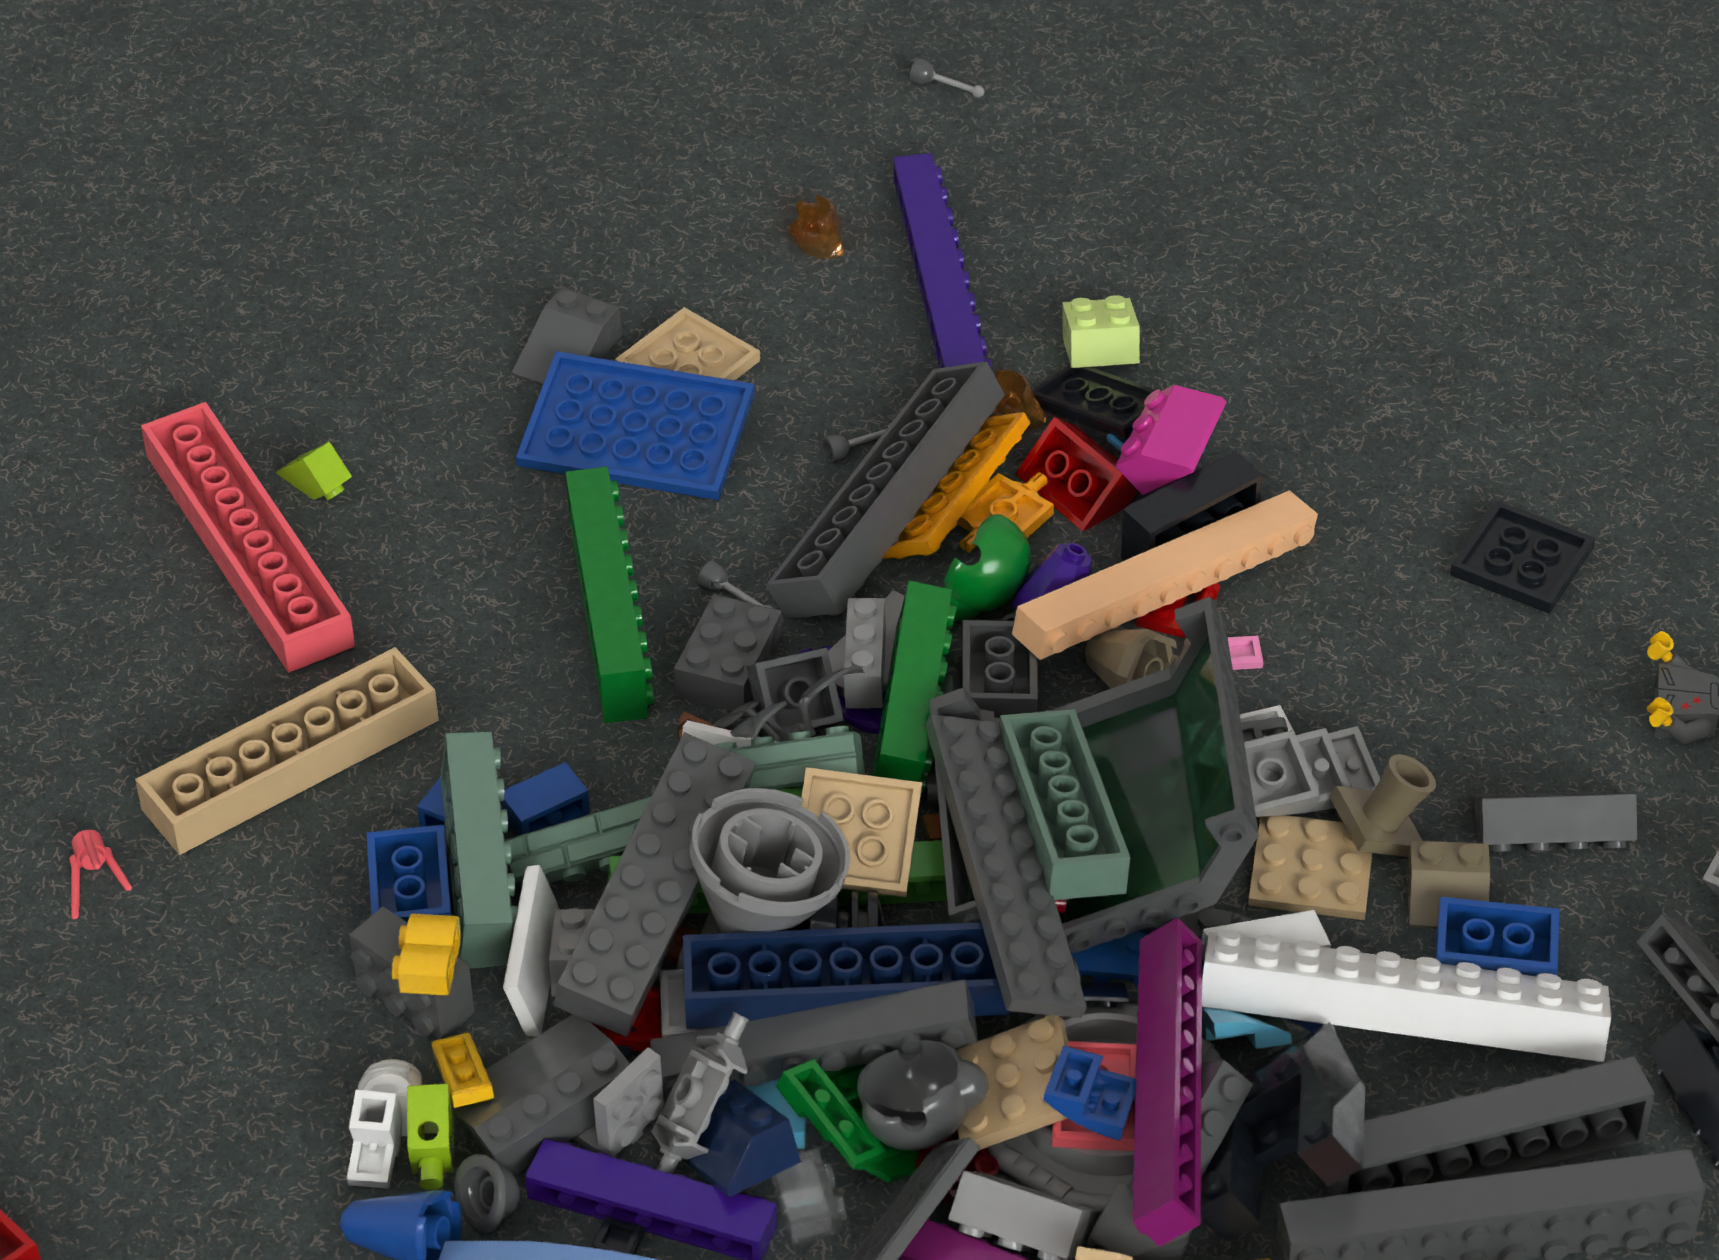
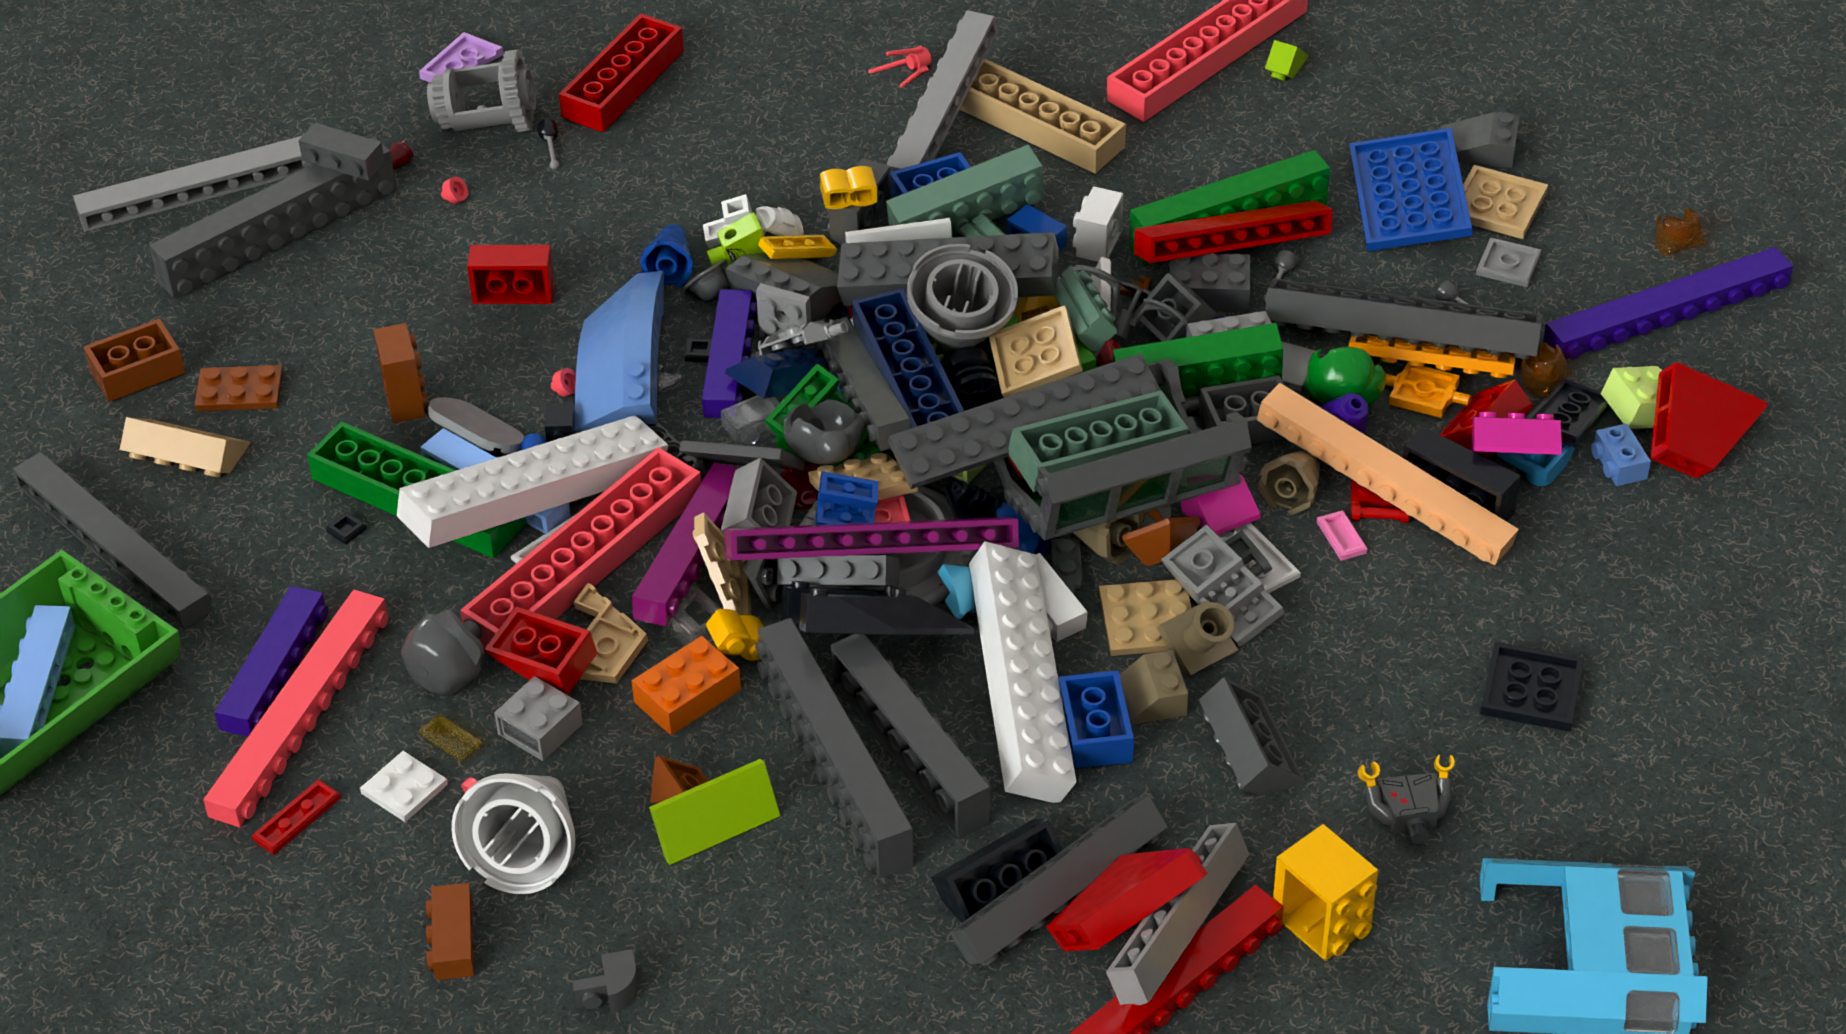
camera: 75 degrees right, 0 degrees up
(242, 823) = (945, 91): none -> light grey brick
(579, 728) = (1098, 224): none -> white brick
(668, 598) = (1232, 231): none -> red brick
(798, 383) = (1508, 262): none -> light grey tile
(1168, 297) = (1698, 419): none -> red slope
(1187, 371) = (1621, 455): none -> medium blue brick

